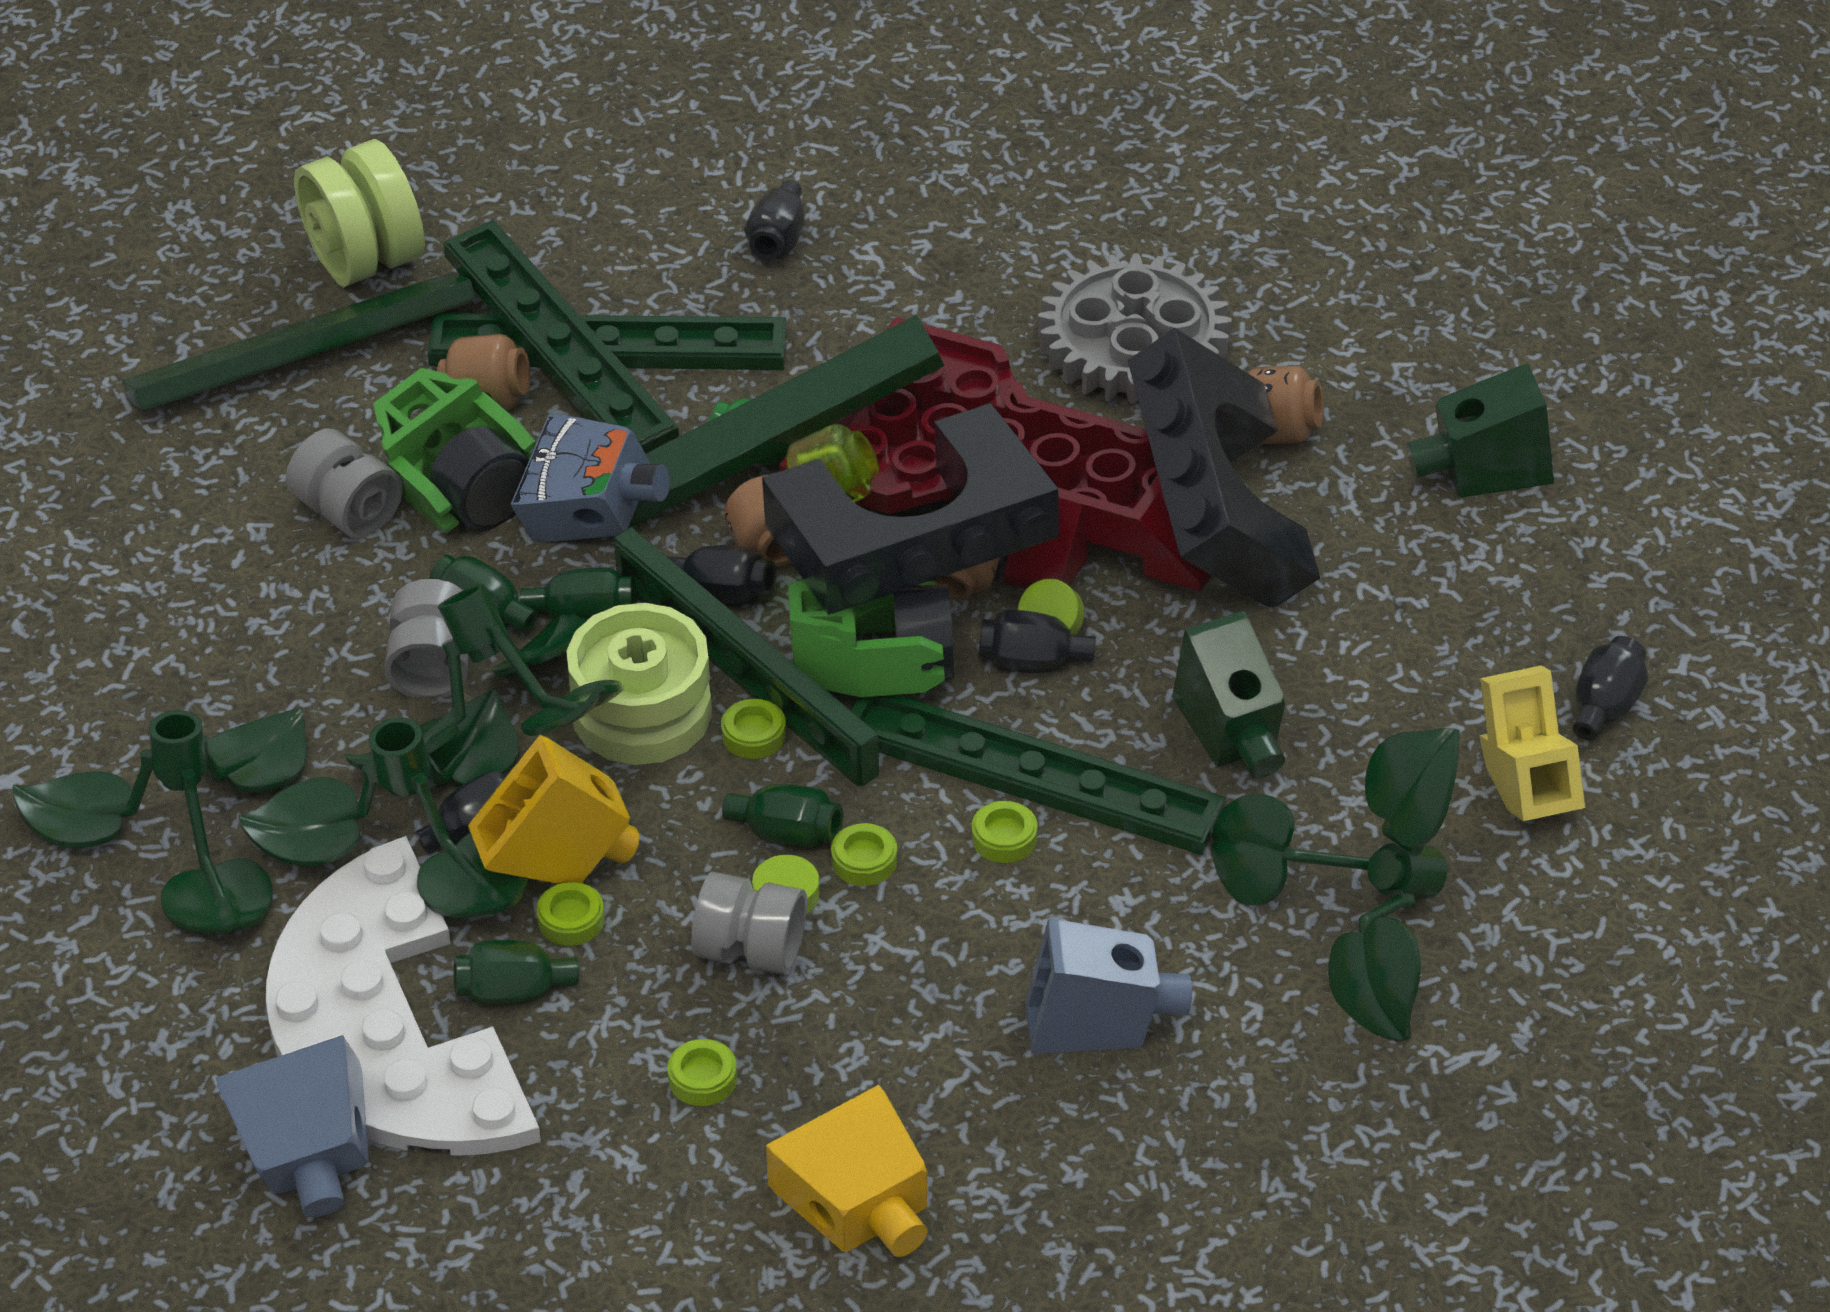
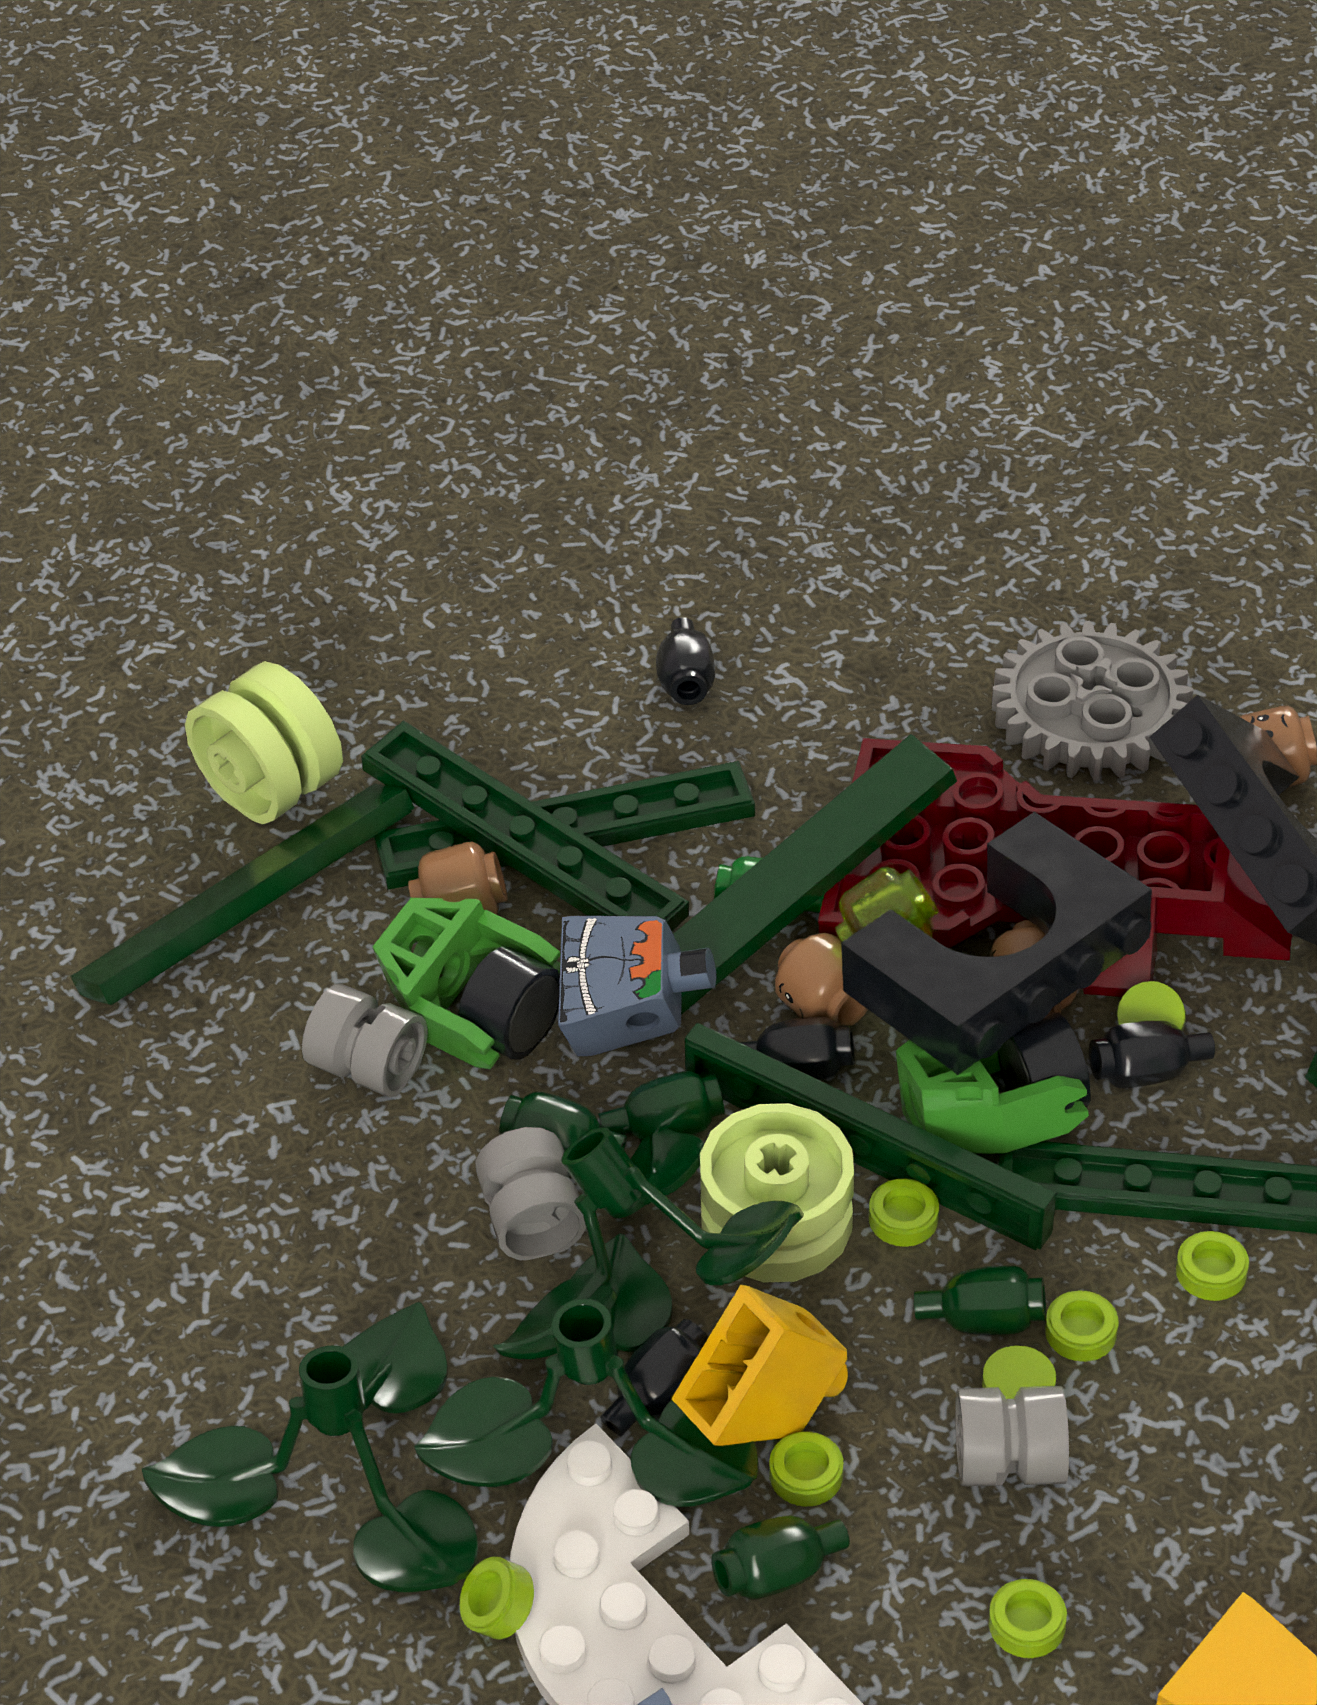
camera: 15 degrees left, 0 degrees up
(260, 950) = (496, 1598): none -> lime tile

